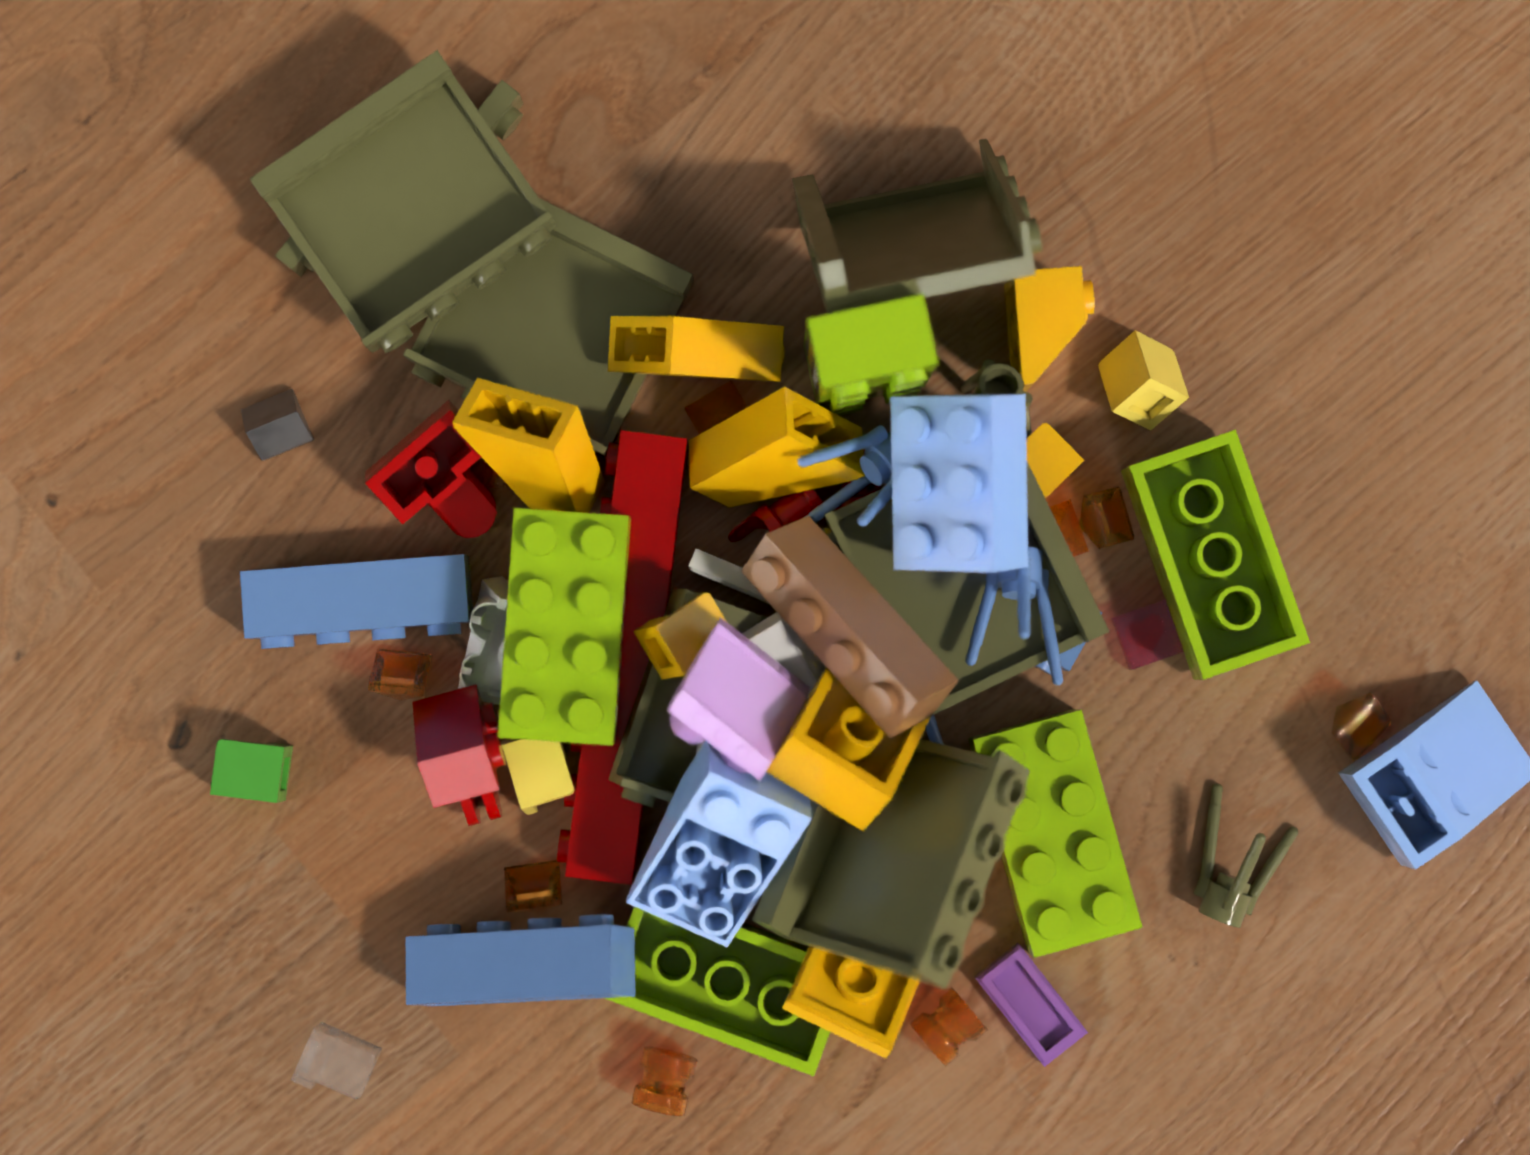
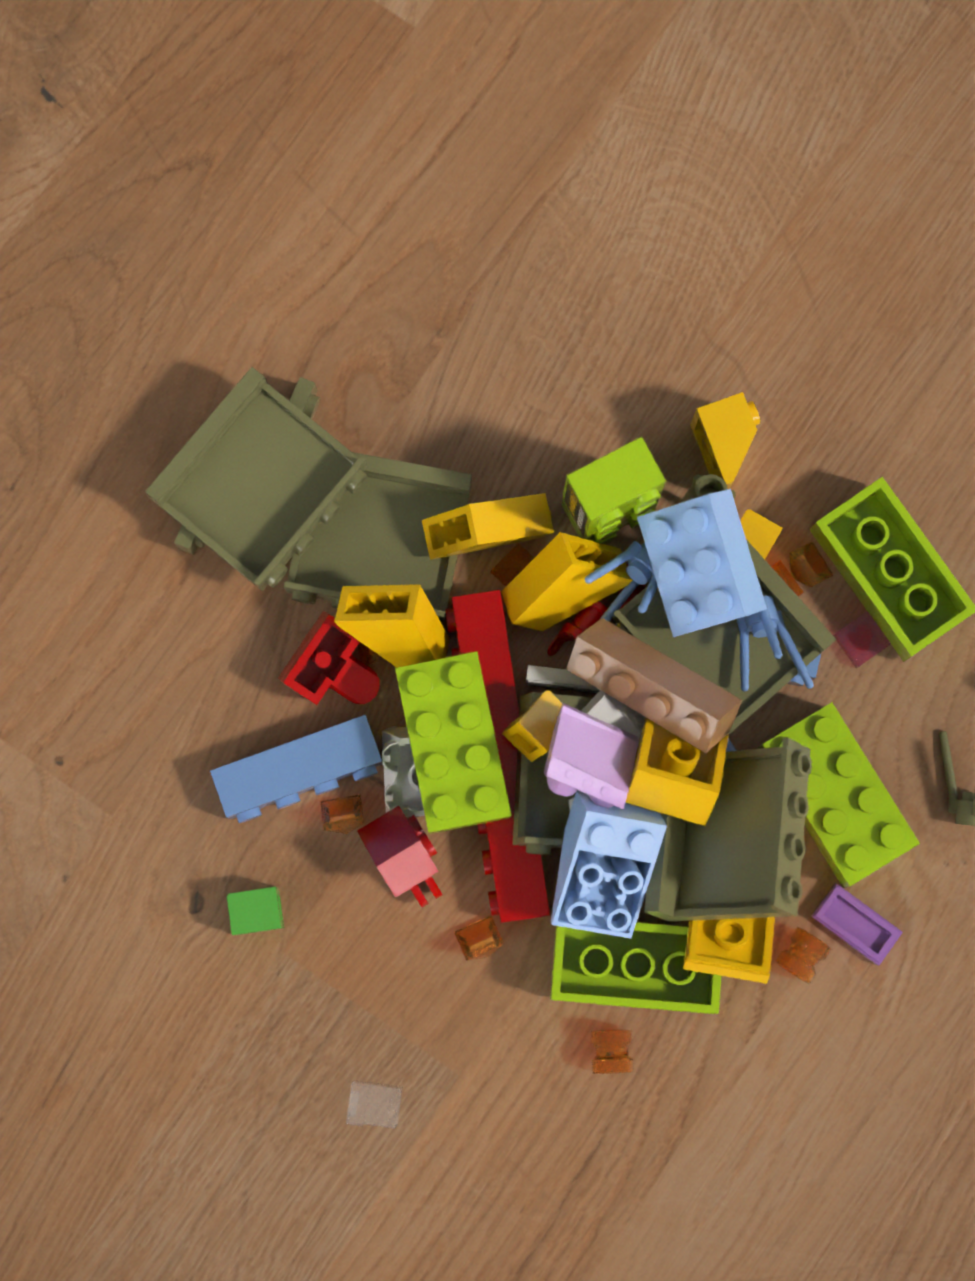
camera: 10 degrees left, 5 degrees down
(276, 425) = (205, 663): flat silver slope -> none
(520, 965) = (487, 993): medium blue brick -> none
(538, 772) = (461, 853): light yellow panel -> none
(919, 237) = (623, 403): olive panel -> none
(1142, 380) = (807, 462): light yellow panel -> none

